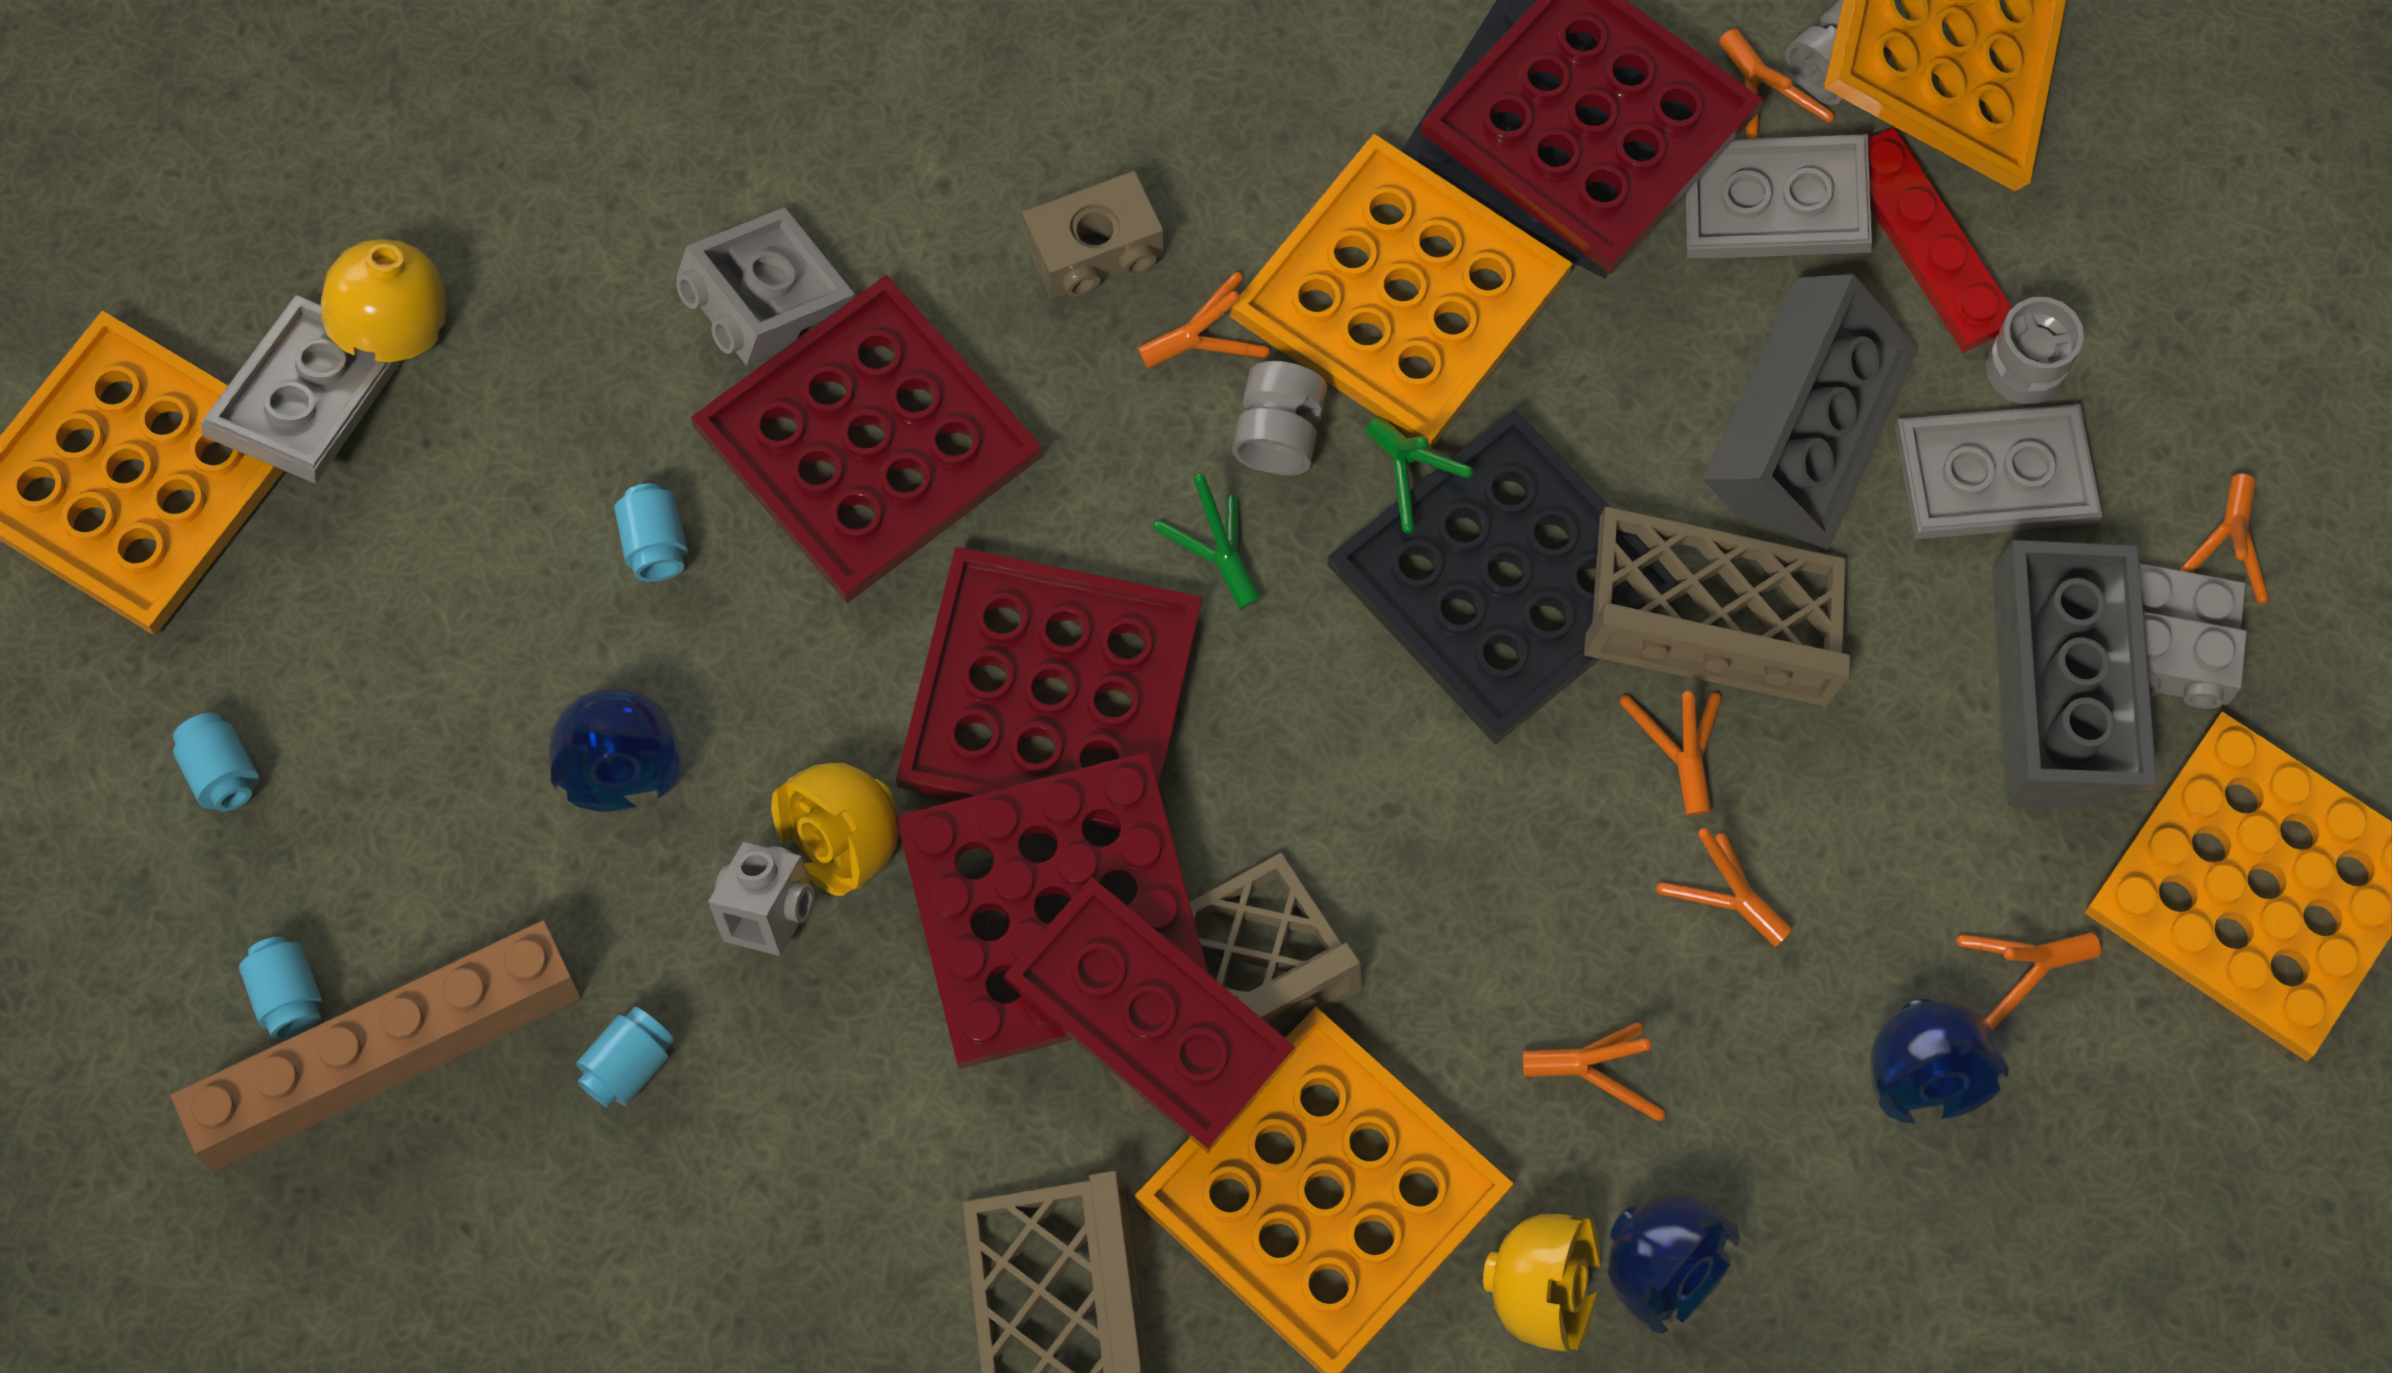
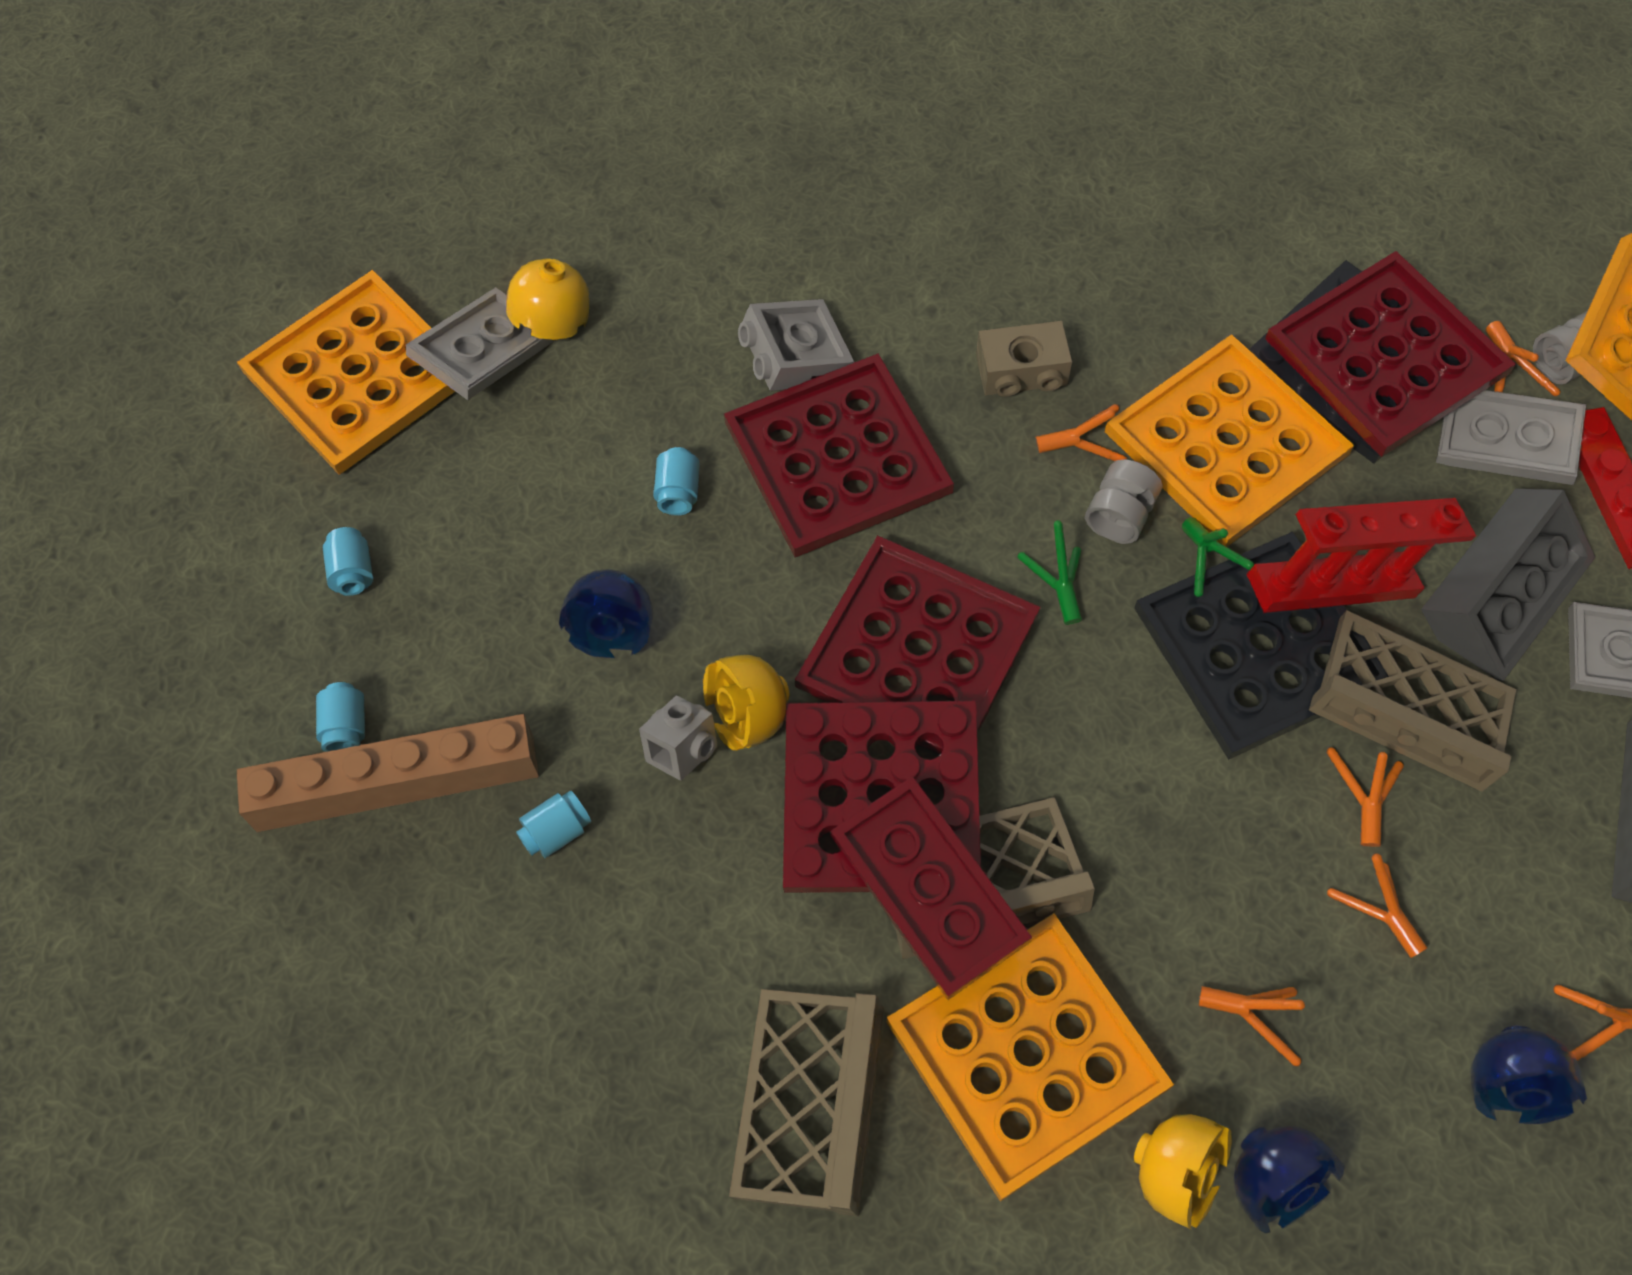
camera: 20 degrees right, 5 degrees down
(1604, 431) = (1361, 578): none -> red fence

